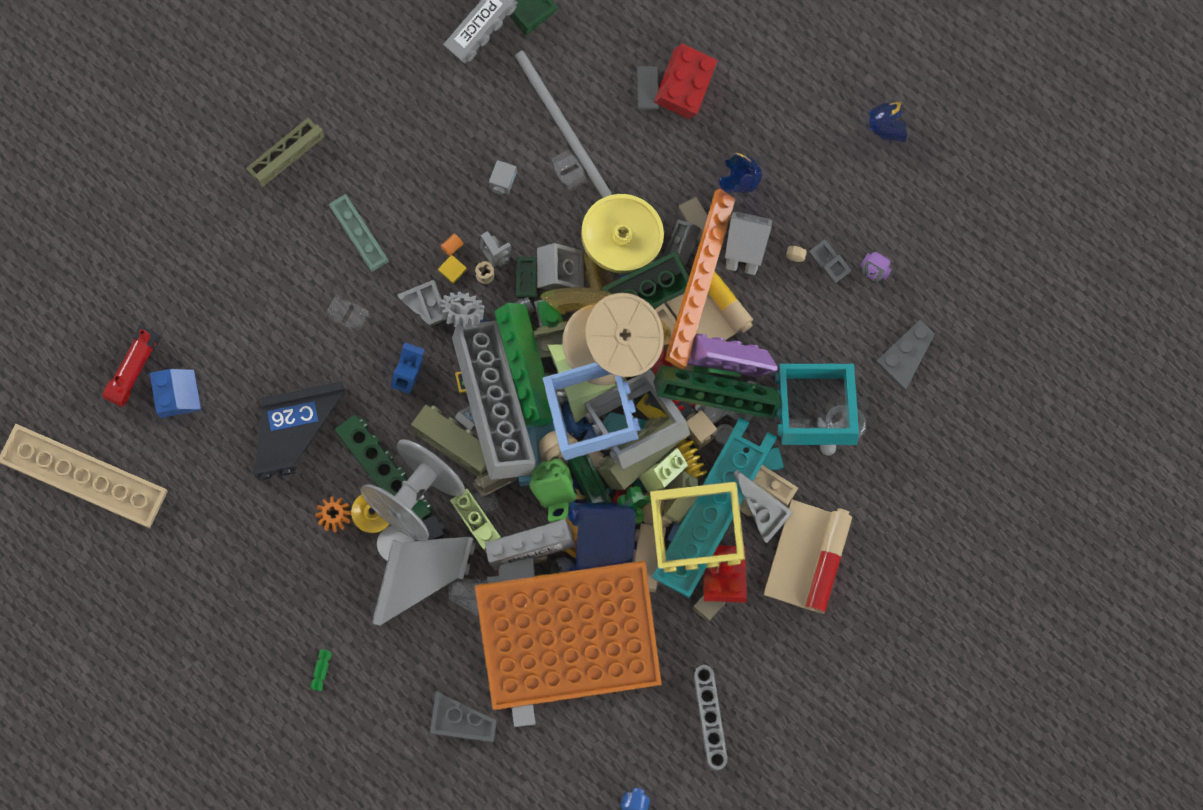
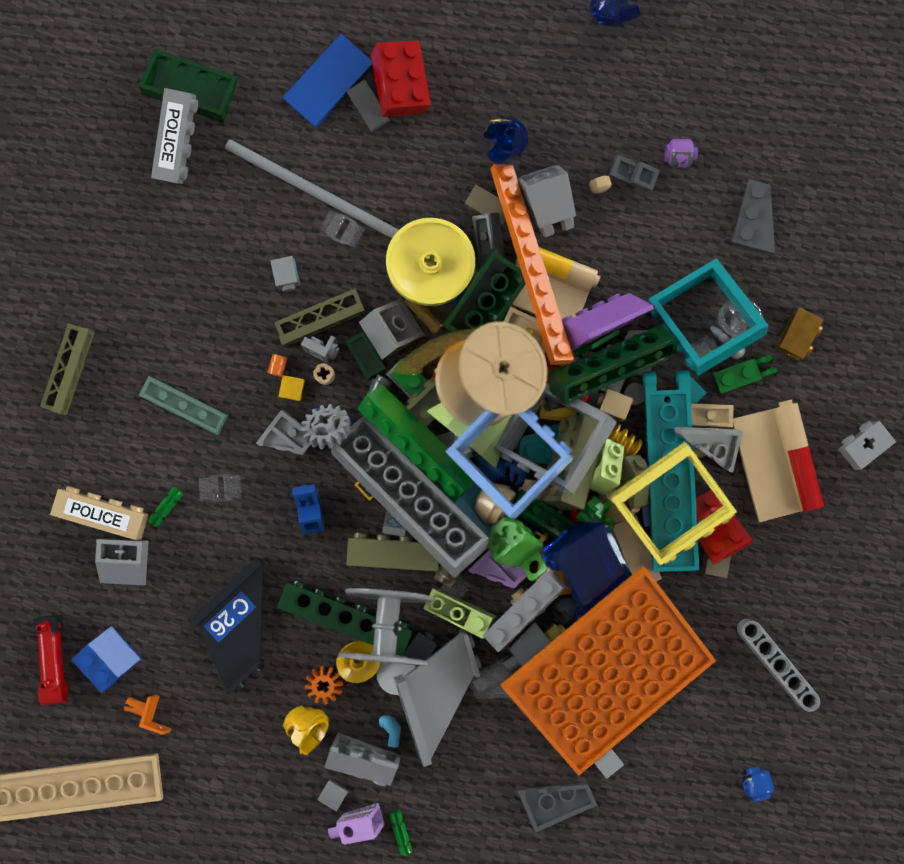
camera: 30 degrees left, 10 degrees up
(180, 451) = (146, 711): none -> orange bracket
(235, 323) = (122, 561): none -> light grey slope
(241, 277) = (99, 514): none -> tan brick
(285, 607) = (333, 795): none -> light grey tile
(291, 639) = (358, 825): none -> lavender torso
(295, 302) = (165, 507): none -> green axle
(301, 536) = (306, 727): none -> yellow helmet
(326, 589) = (362, 760): none -> light grey wedge
(367, 583) = (392, 728): none -> medium azure arm
(508, 233) = (320, 324): none -> olive fence
(529, 507) = (497, 572): none -> lavender wing
(628, 50) = (328, 80): none -> blue tile
(822, 470) = (741, 374): none -> green hinge
(886, 464) = (799, 334): none -> pearl gold brick
(901, 588) = (878, 442): none -> light grey brick

